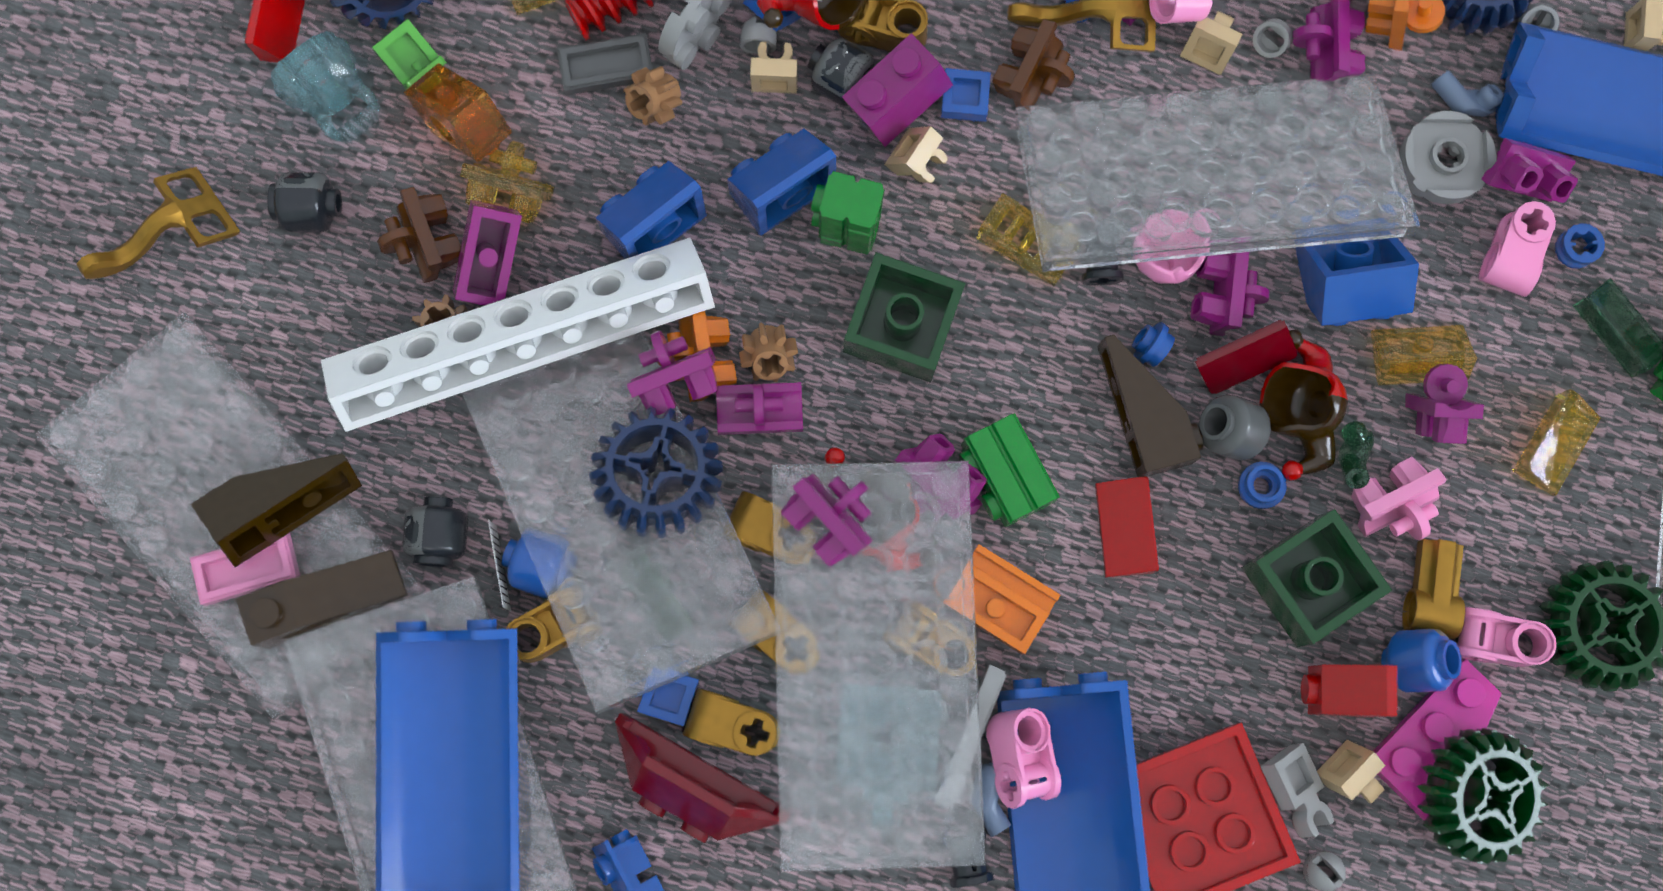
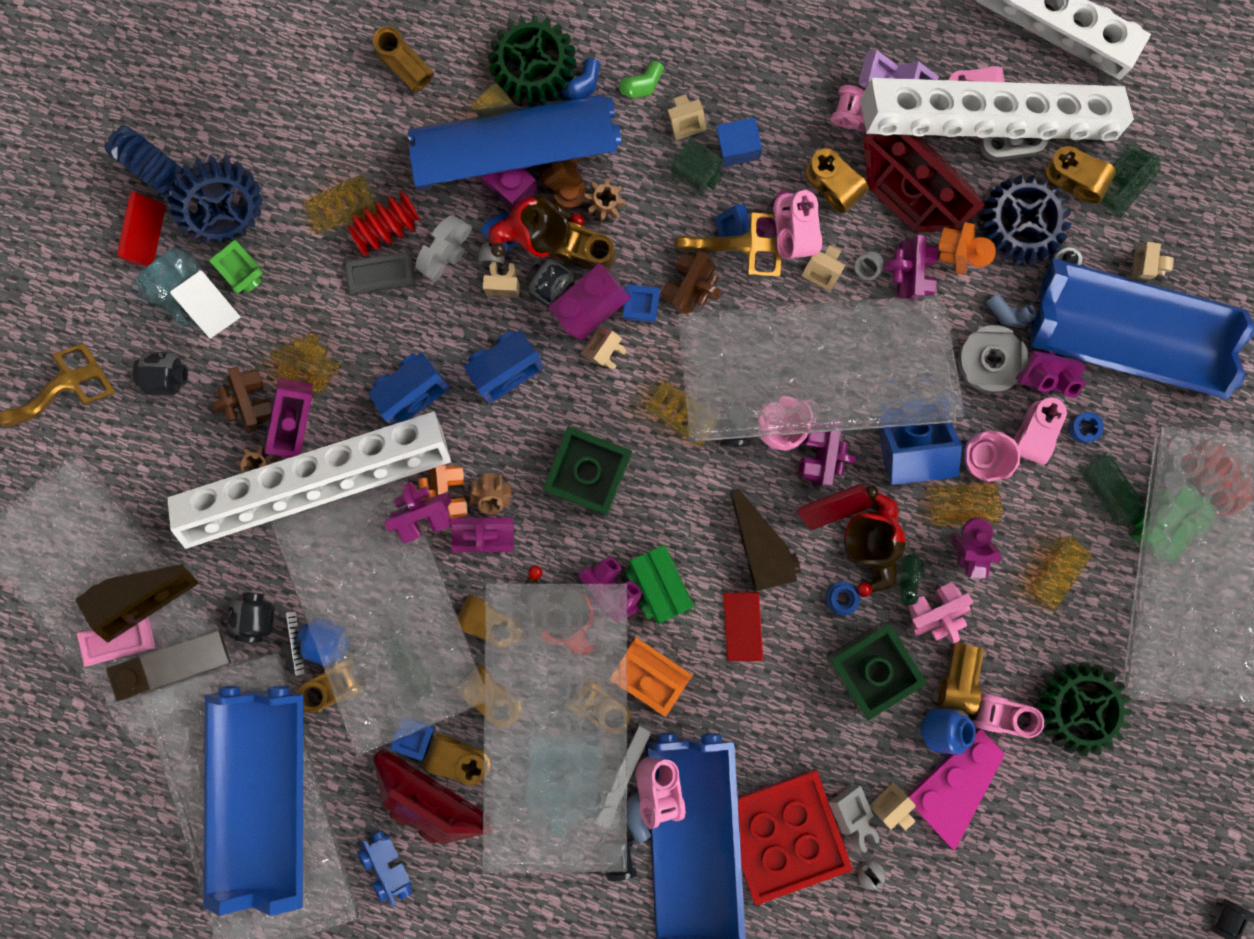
camera: 10 degrees right, 5 degrees up
(366, 107) = (205, 304): none -> white sticker
(458, 112) = (270, 312): clear orange brick -> none
(639, 465) = (407, 569): dark blue gear -> none
(653, 95) = (412, 300): medium nougat gear -> none
(815, 500) = (527, 622): magenta hips -> none
(848, 212) = (550, 393): green brick -> none
(1153, 344) = (768, 494): blue plate -> none
(1234, 427) = (823, 558): dark grey head -> none
(1350, 690) = (894, 752): red slope -> none
(1456, 283) = (991, 456): none -> bright pink hair
(1500, 799) = (973, 827): dark green gear -> none

